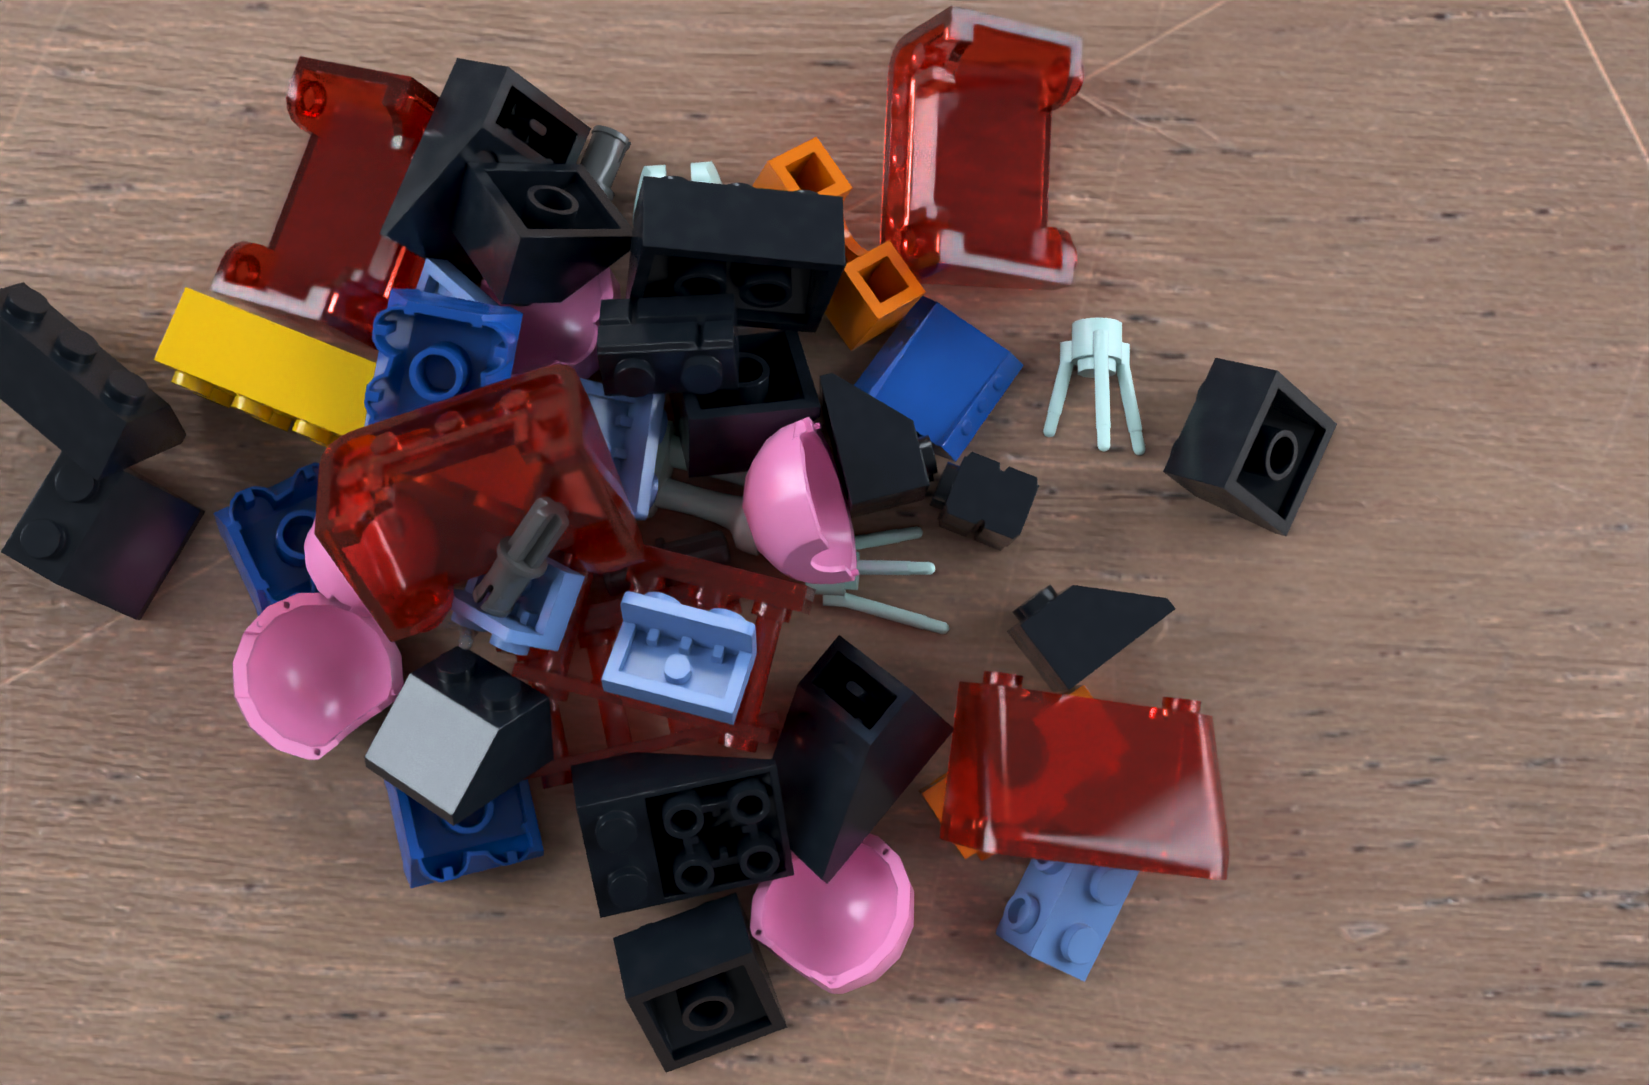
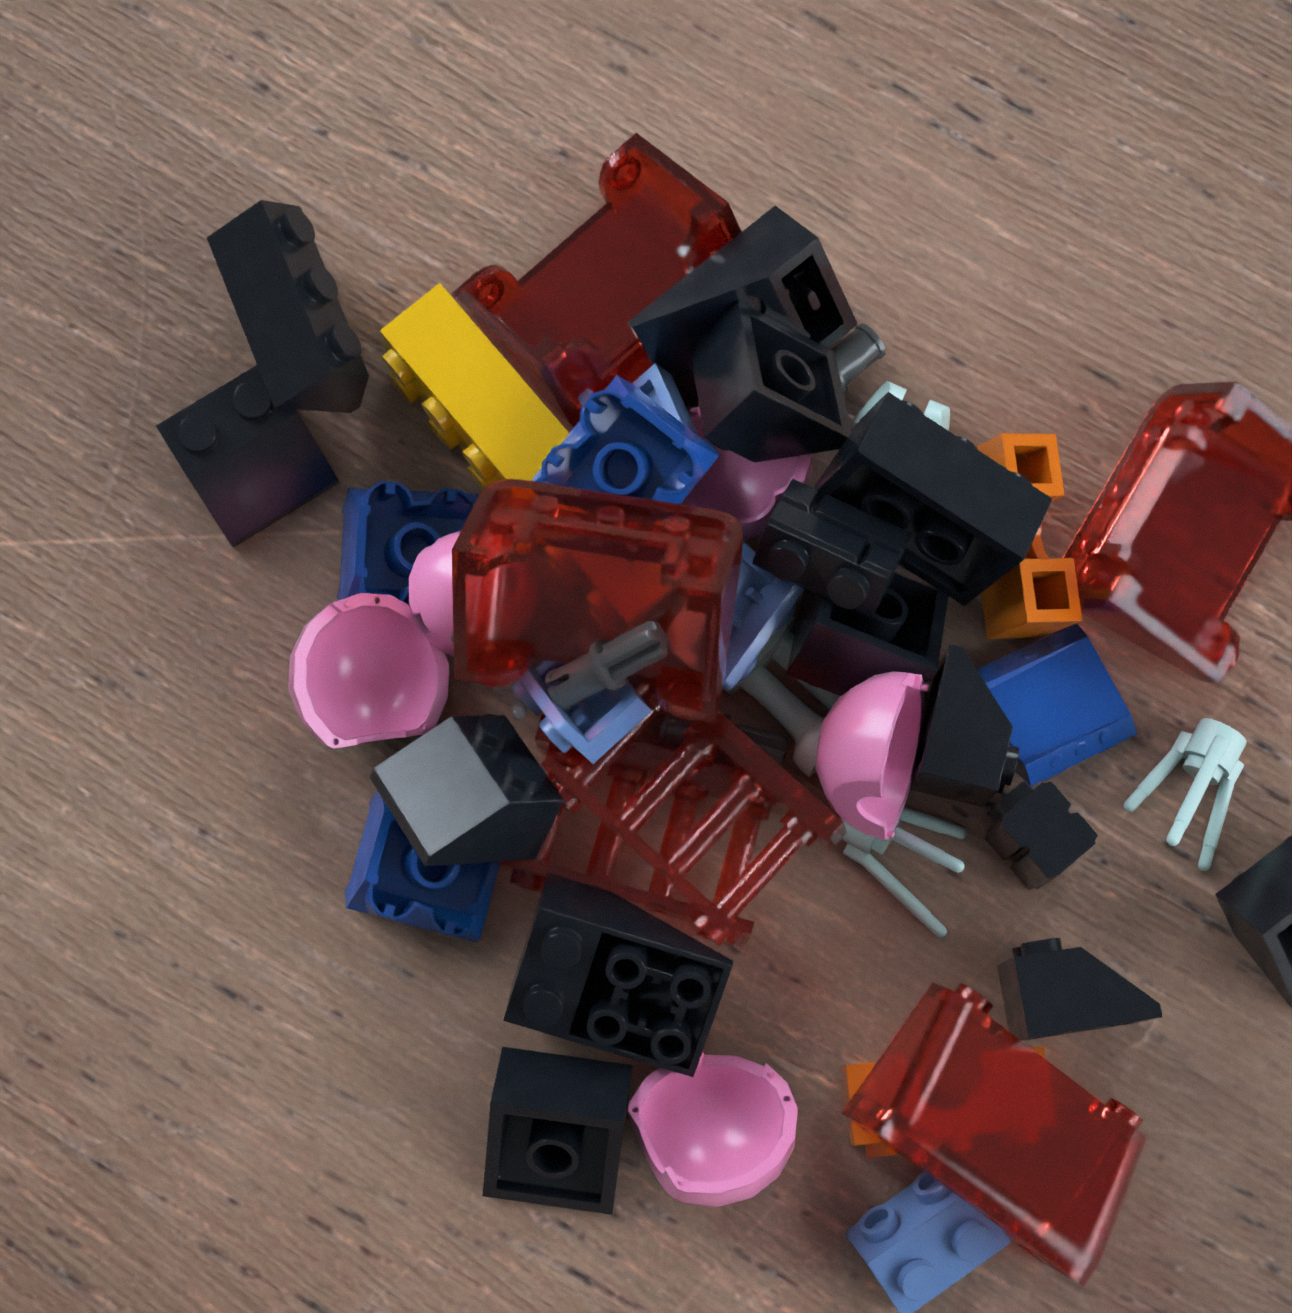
camera: 30 degrees right, 5 degrees down
(681, 656) = (701, 824): medium blue bracket -> none
(849, 754) = (801, 993): black slope -> none

